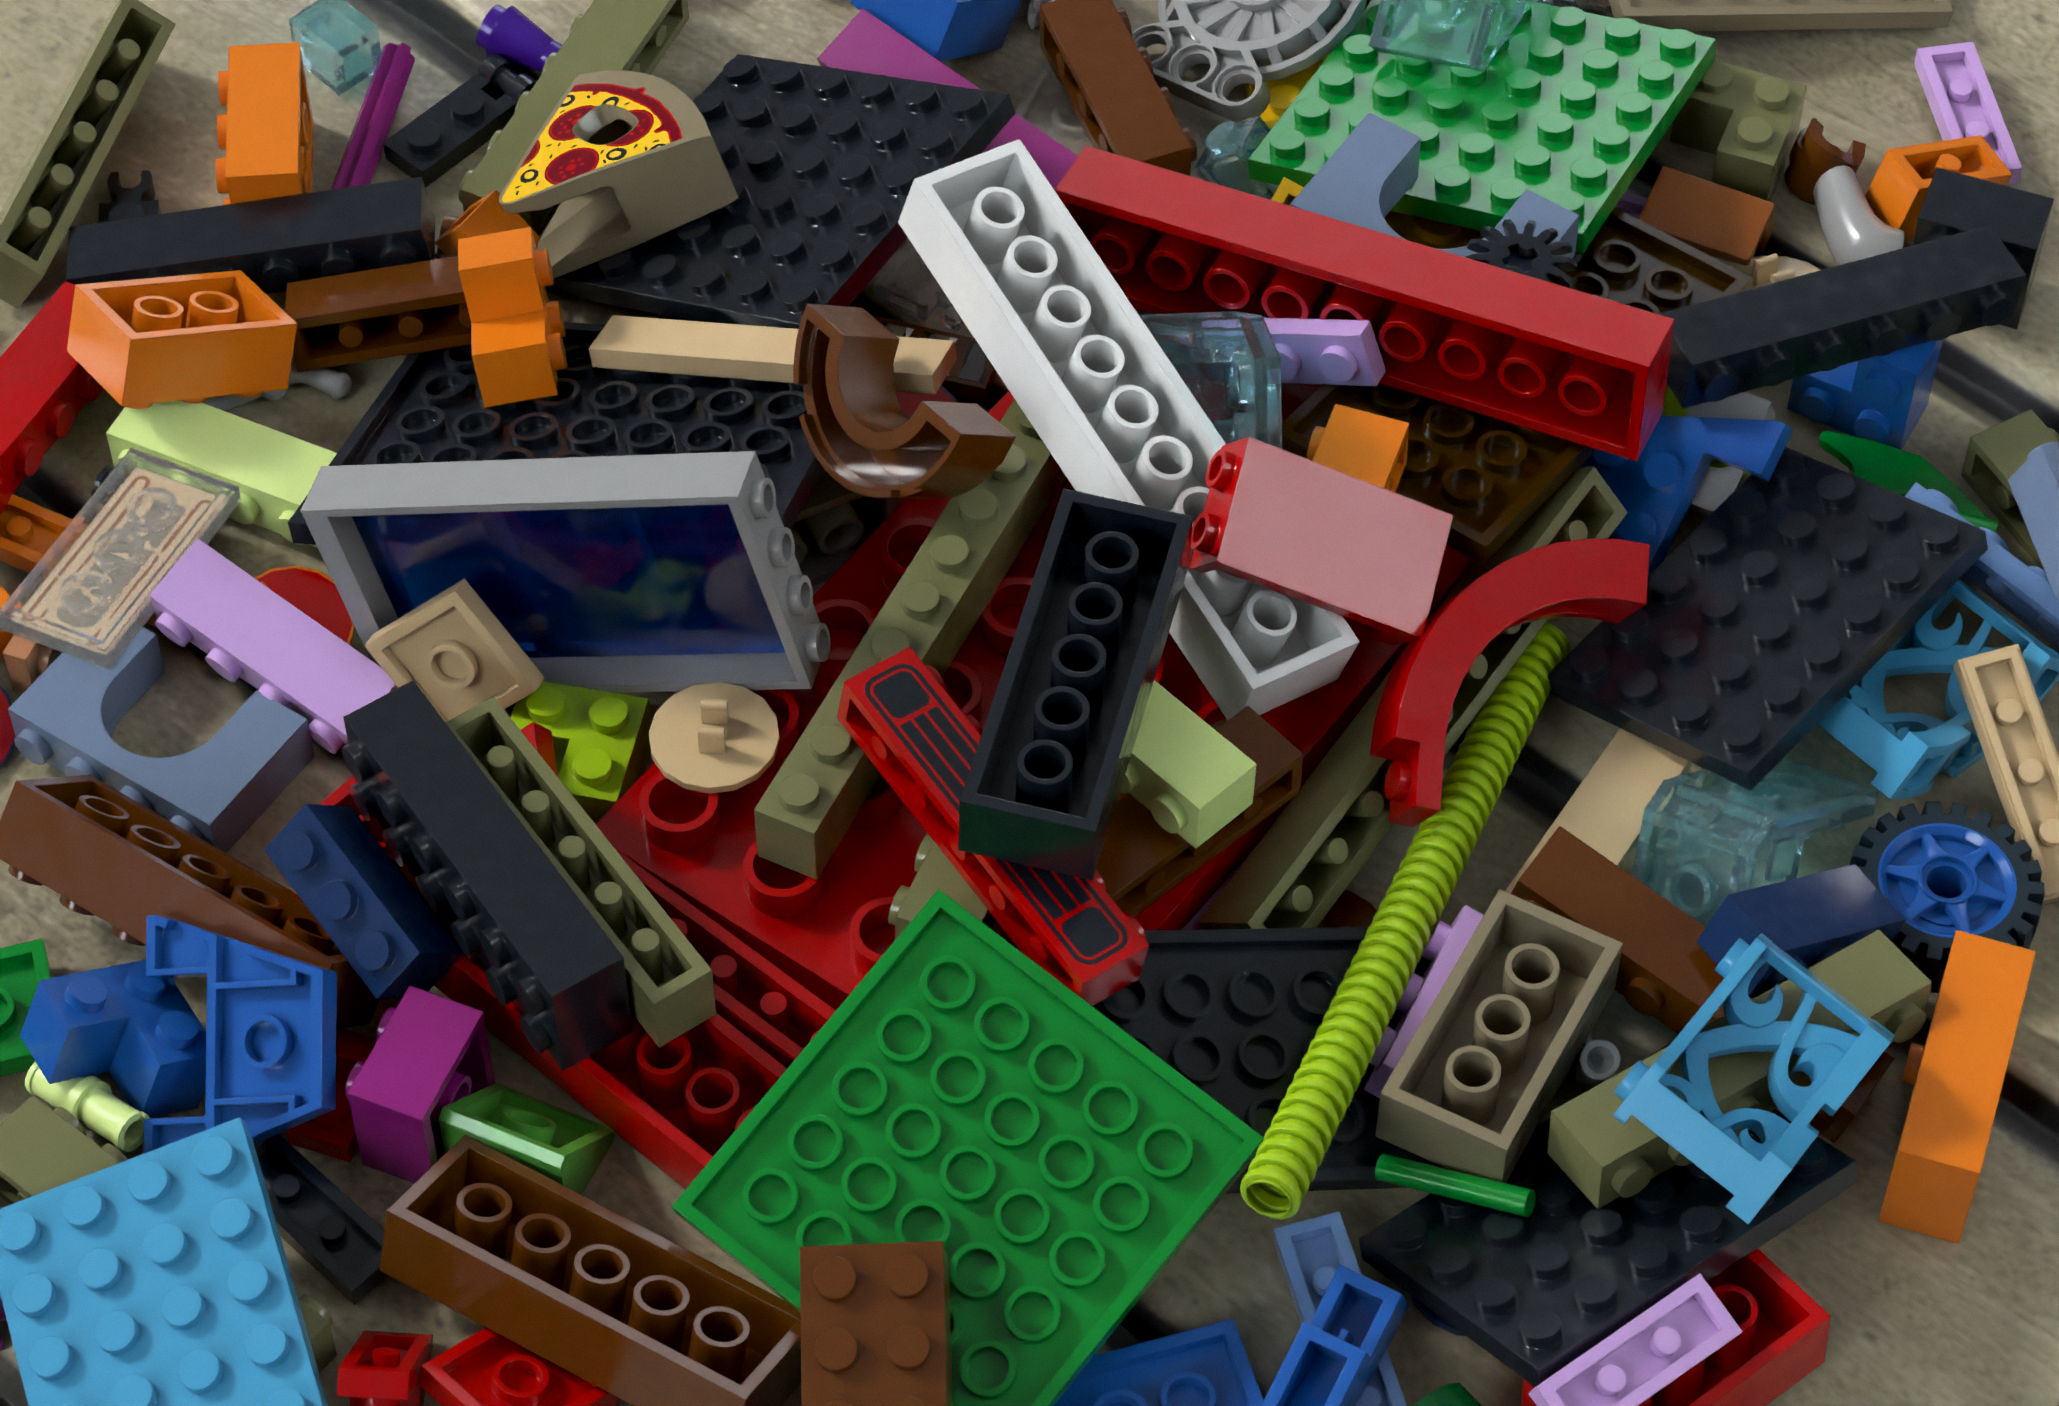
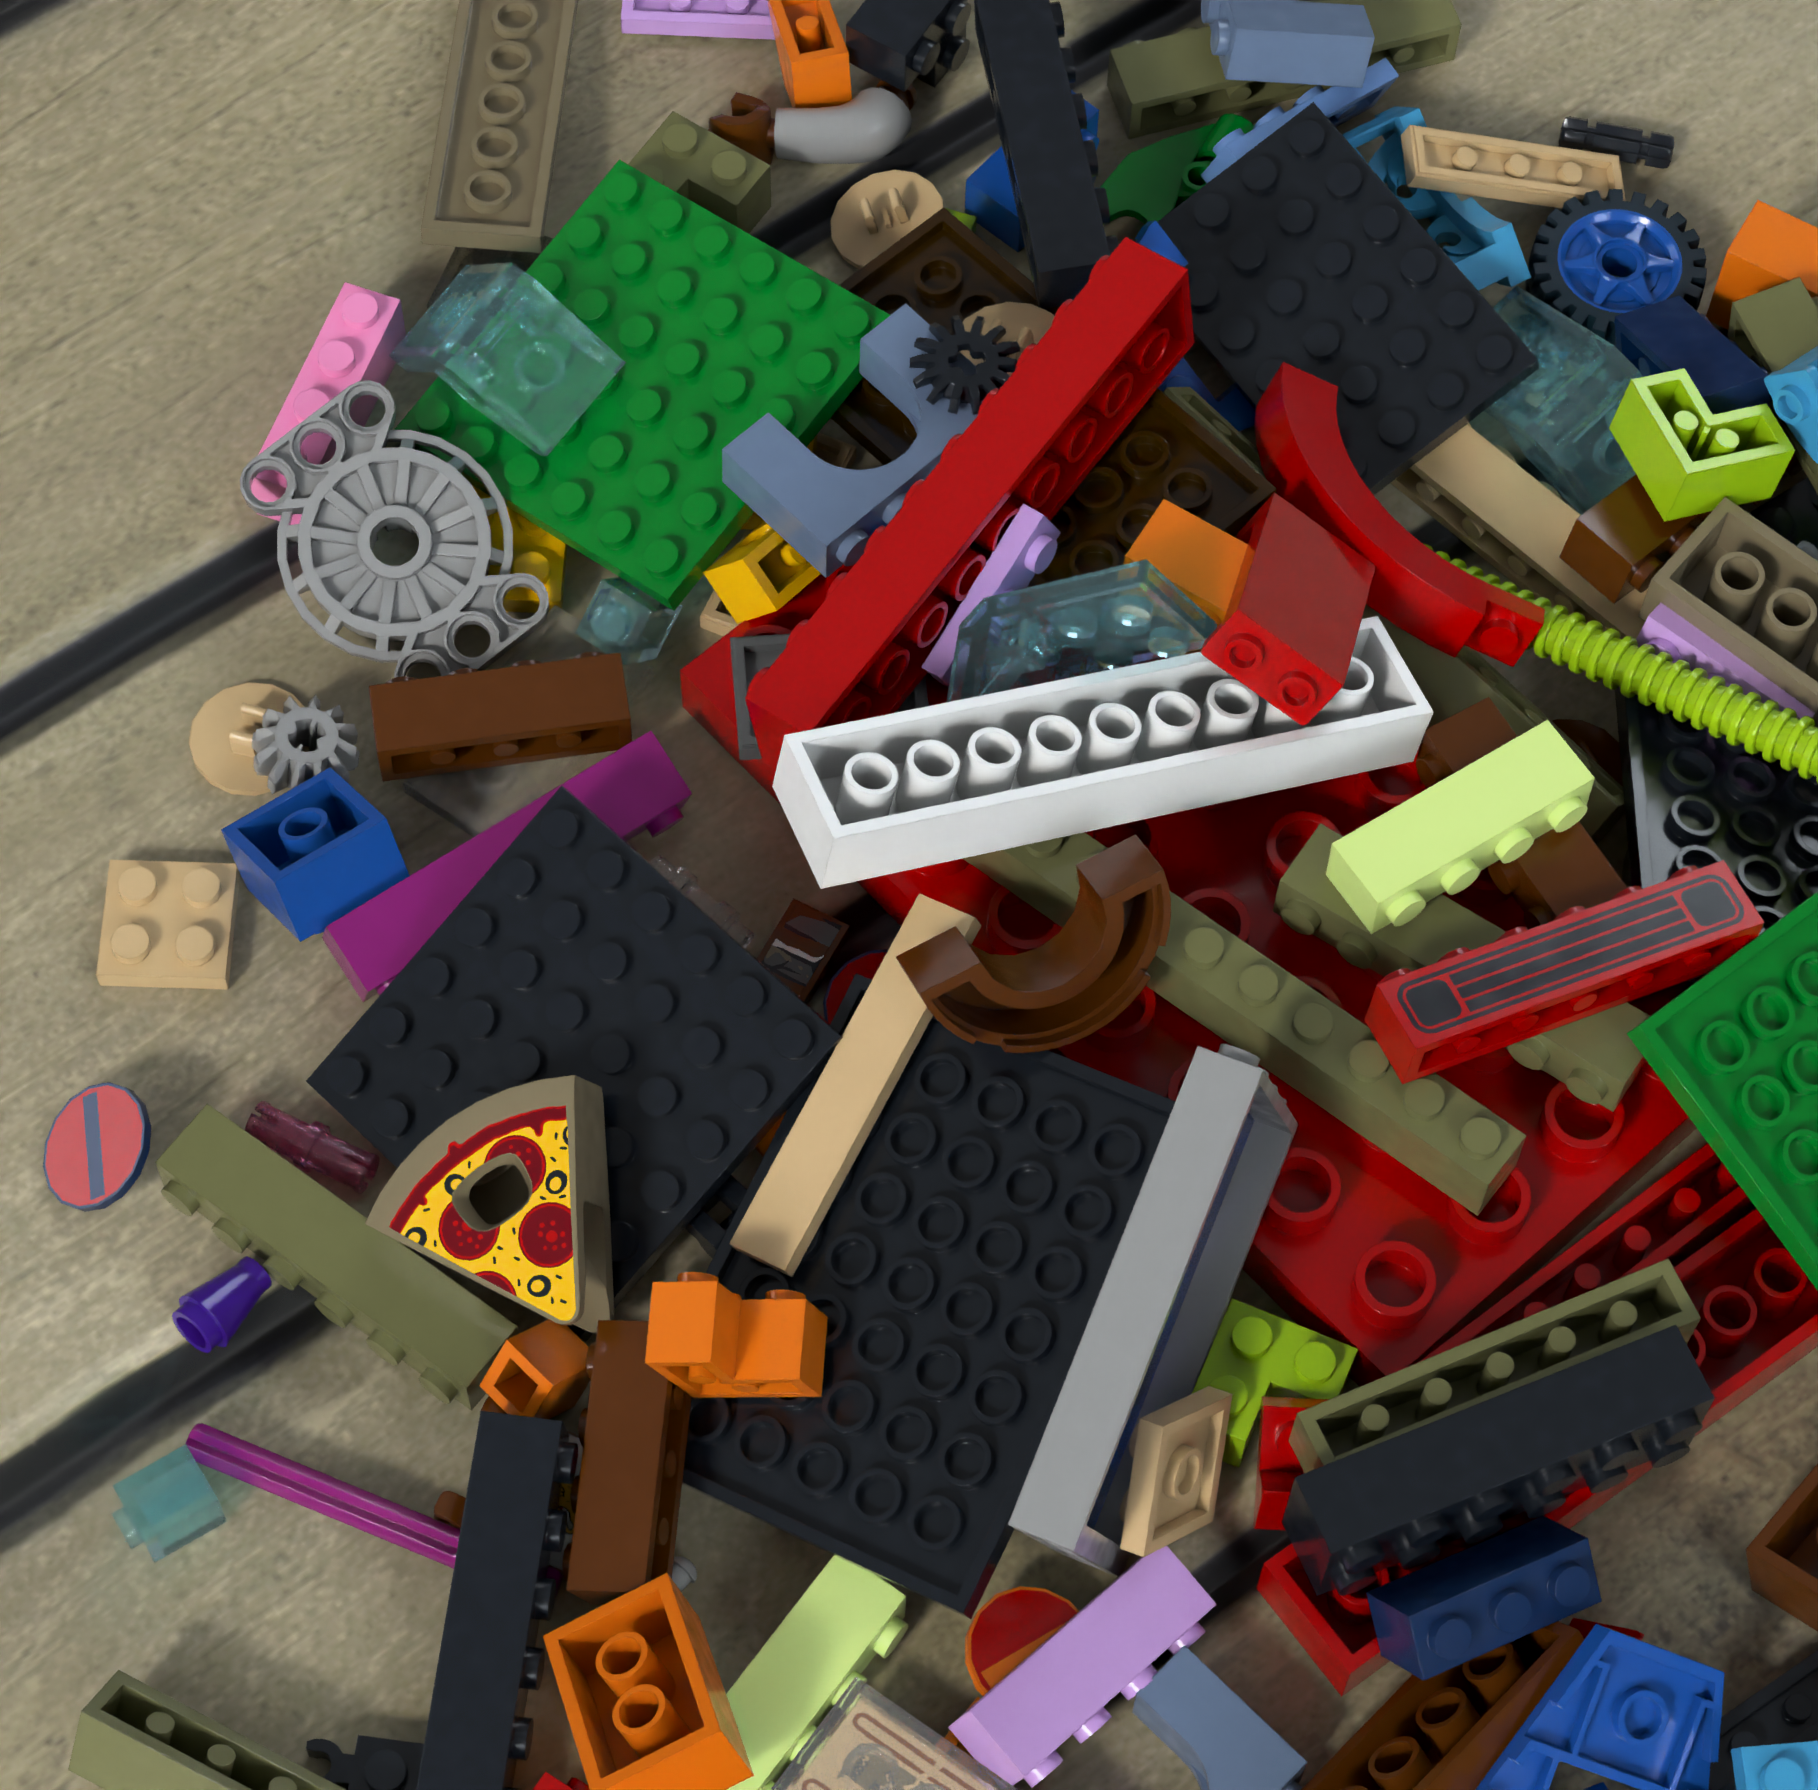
camera: 80 degrees left, 10 degrees up
(265, 124) = (342, 1587): orange brick -> none
(422, 1060) = (1671, 1584): magenta brick -> none
(458, 122) = (319, 1389): black plate -> none
(530, 1132) = (1712, 1507): bright green slope -> none
(683, 61) = (312, 1147): none -> clear pink pin
(714, 737) = (1328, 1231): tan piece -> none
(1075, 685) = (1472, 834): black brick -> none
(1660, 906) = (1697, 457): none -> lime brick
(1709, 216) = (813, 228): dark orange panel -> none

